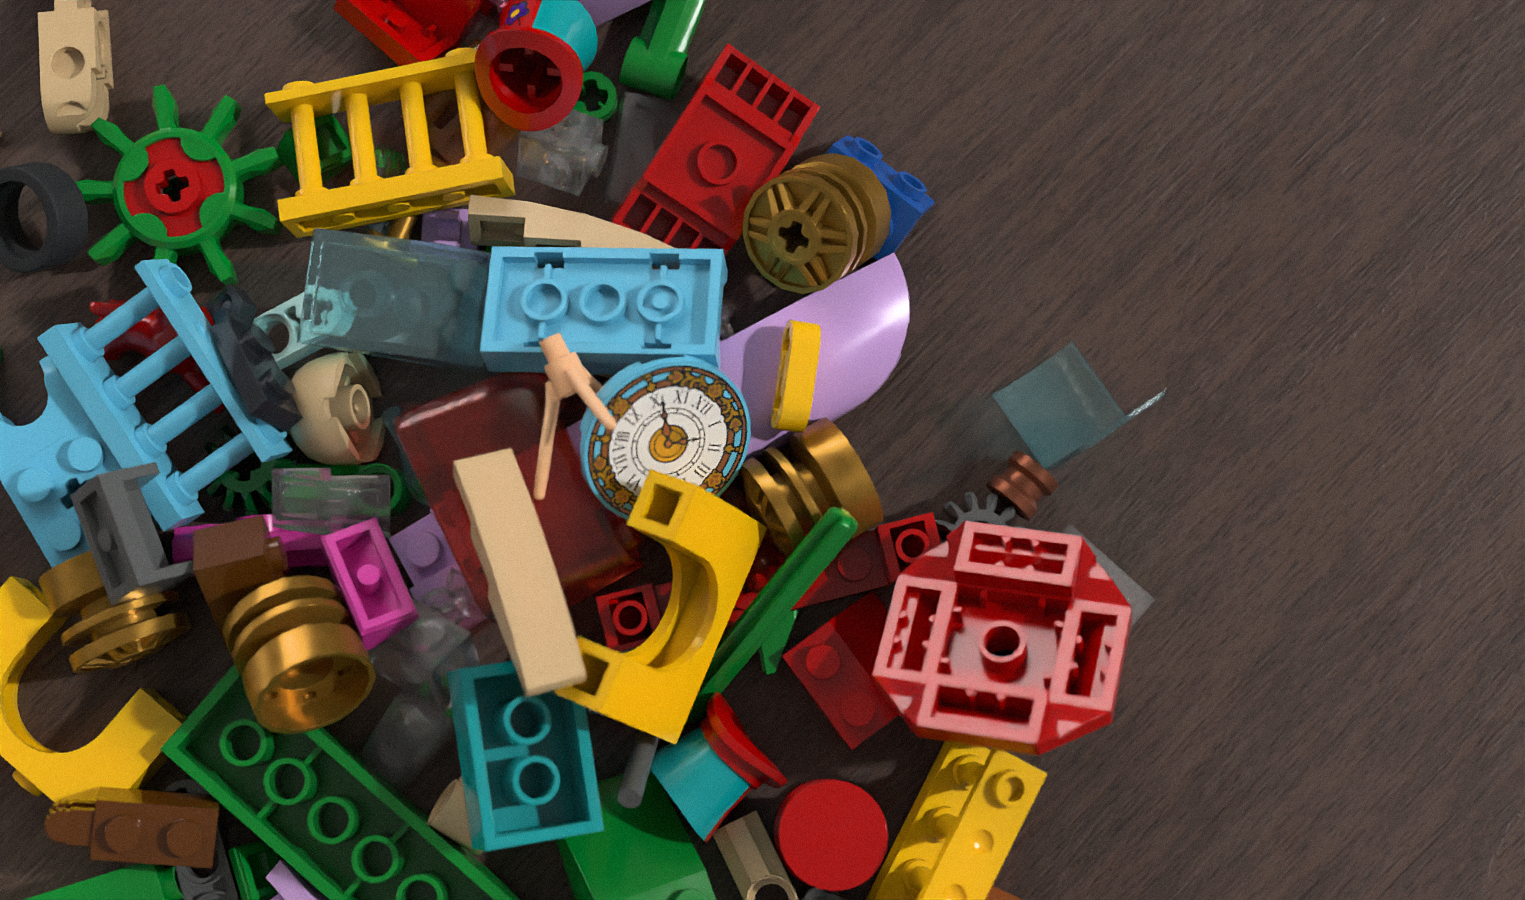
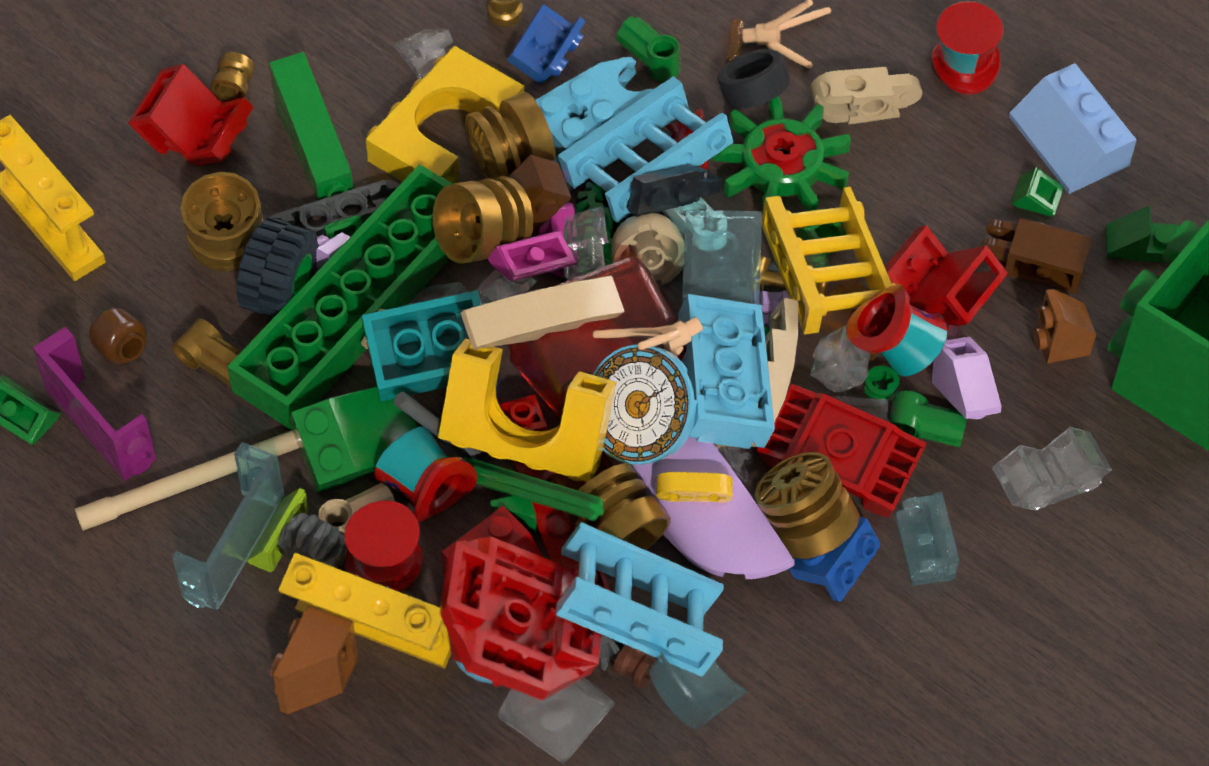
camera: 85 degrees right, 25 degrees down
(125, 536) = (552, 125): dark grey panel -> none
(139, 826) = (370, 157): reddish brown hinge -> none
(857, 67) = (927, 540): none -> clear light blue hinge
(1007, 498) = (629, 621): none -> medium azure fence

